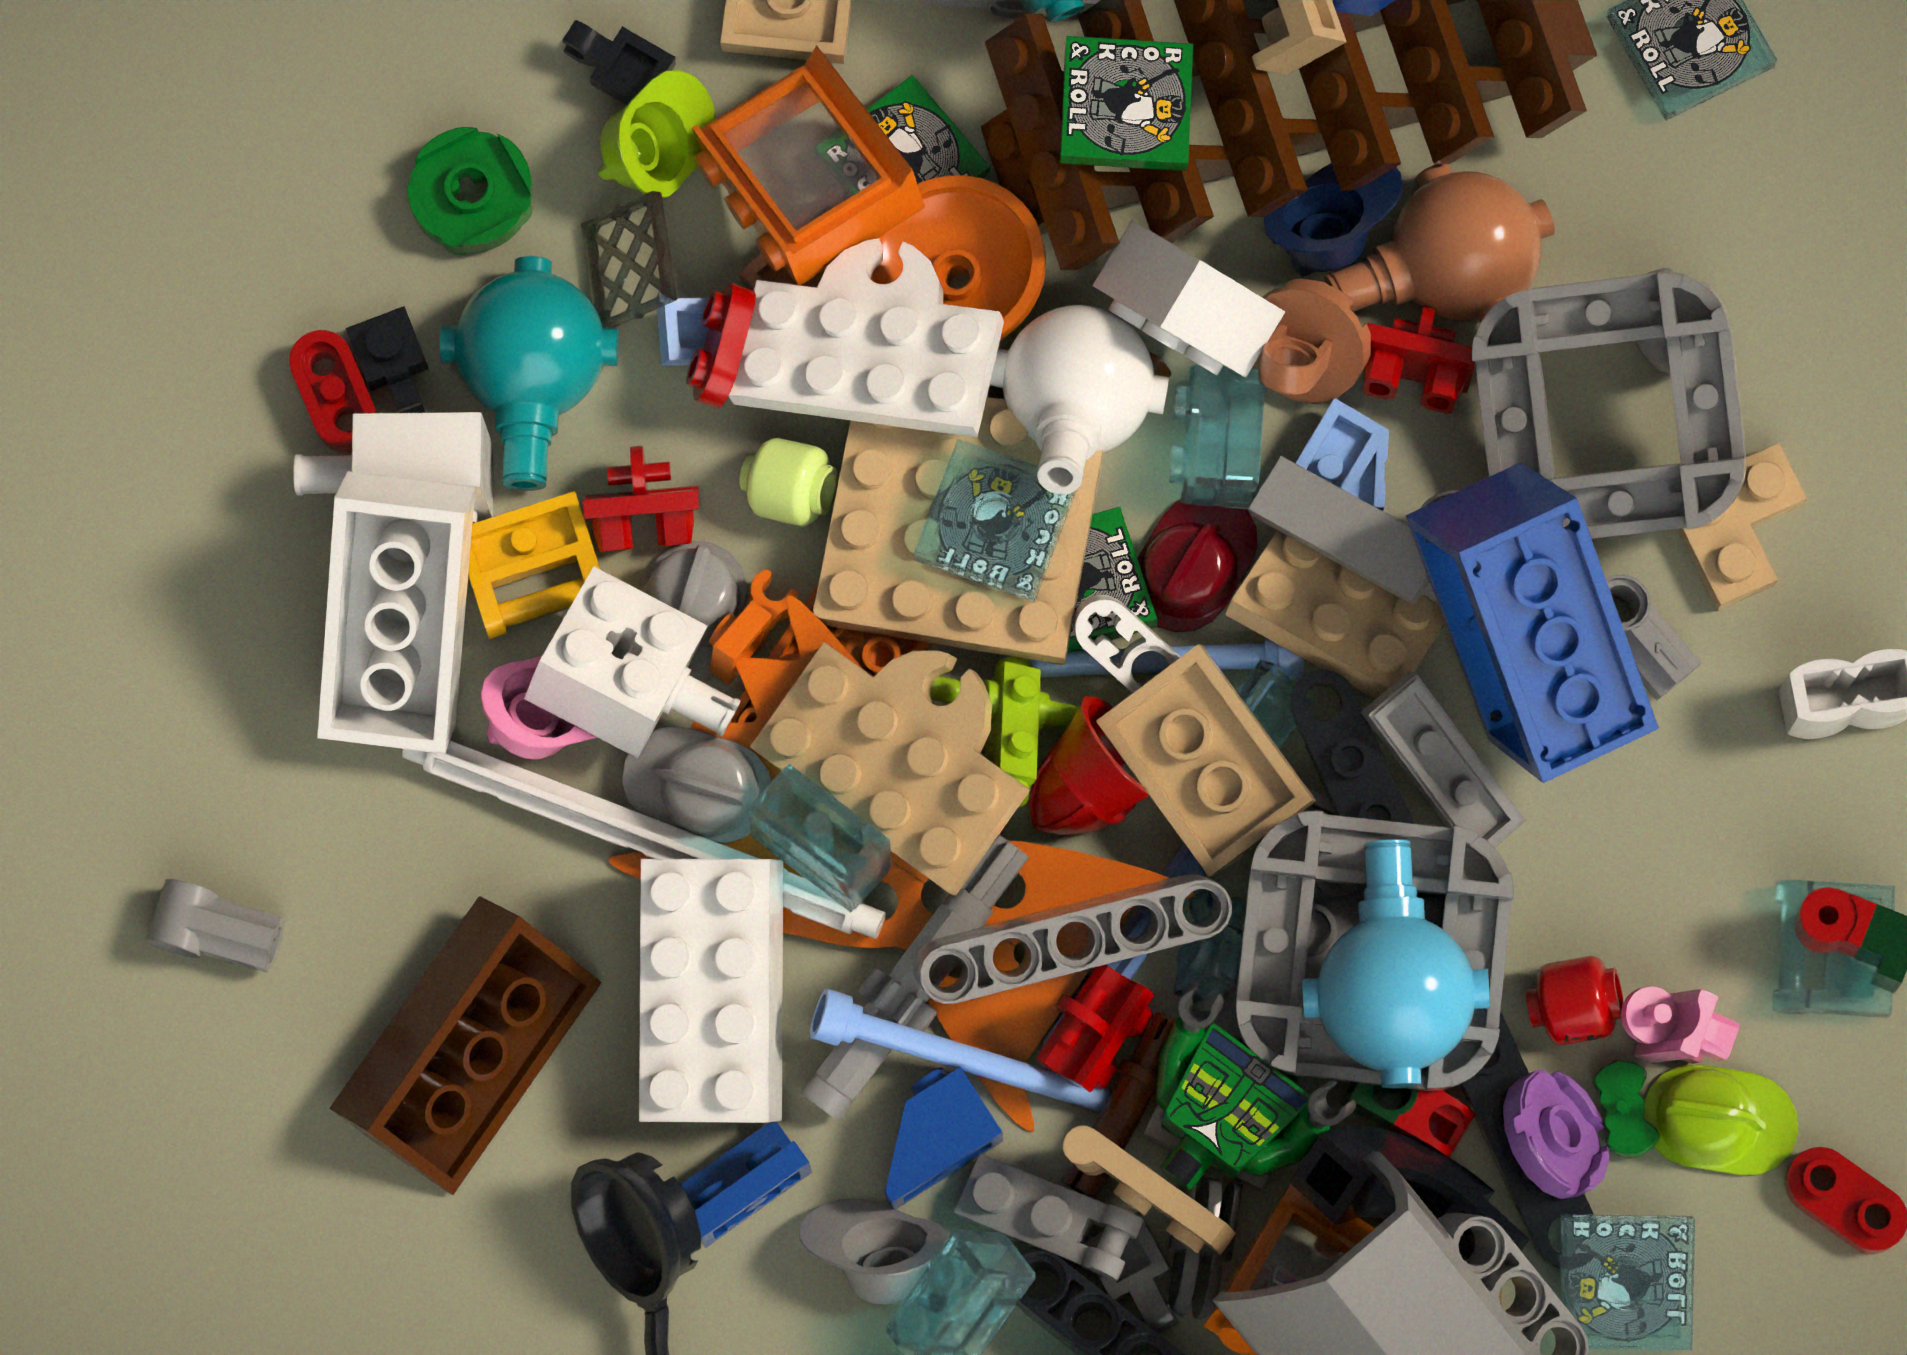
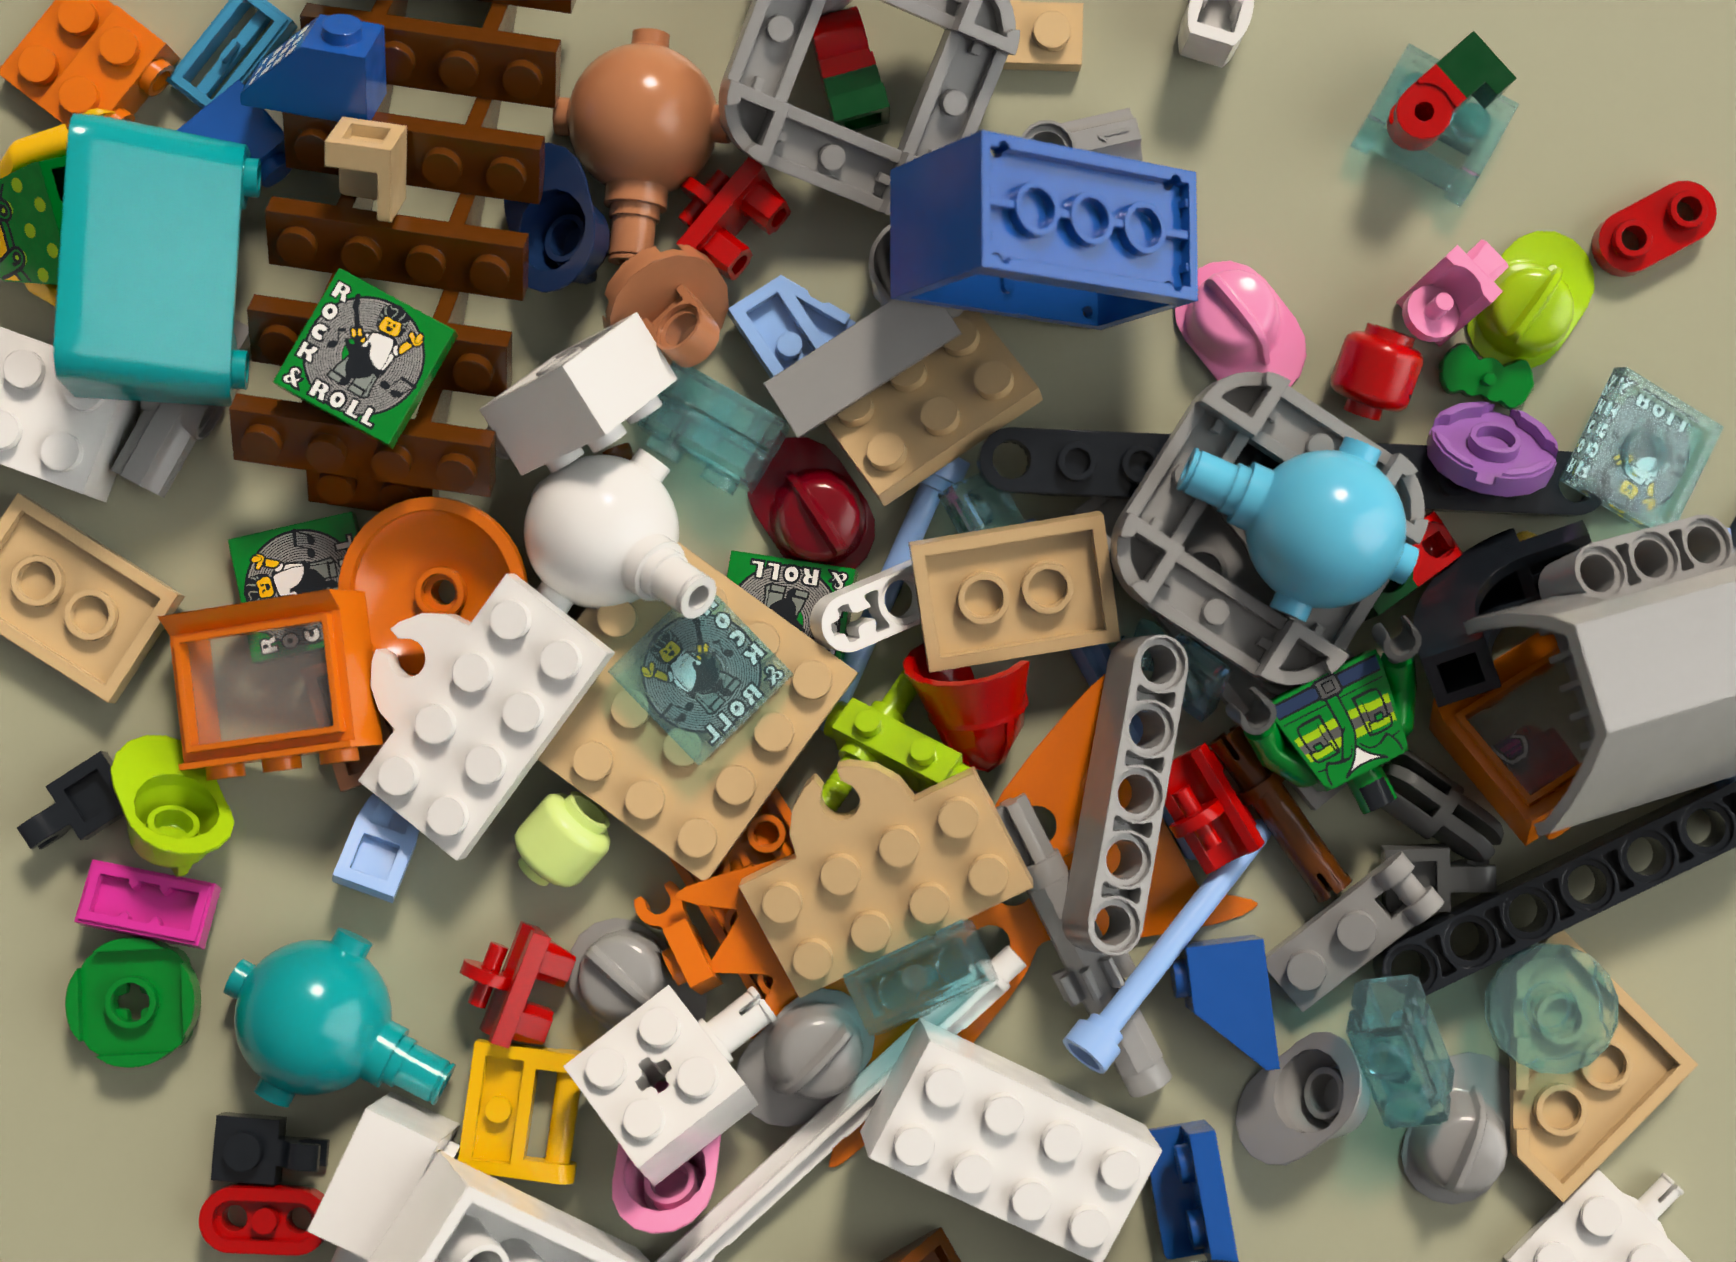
camera: 70 degrees left, 10 degrees up
(560, 161) = (148, 904): none -> dark pink plate
(660, 256) = (291, 860): clear smoke window -> none
(716, 366) = (423, 858): red plate -> none
(1144, 1188) = (1381, 837): tan plate -> none
(1441, 761) = (1114, 381): light grey tile -> none
(1558, 865) = (1241, 324): none -> bright pink piece
(1603, 403) = (849, 71): none -> leg

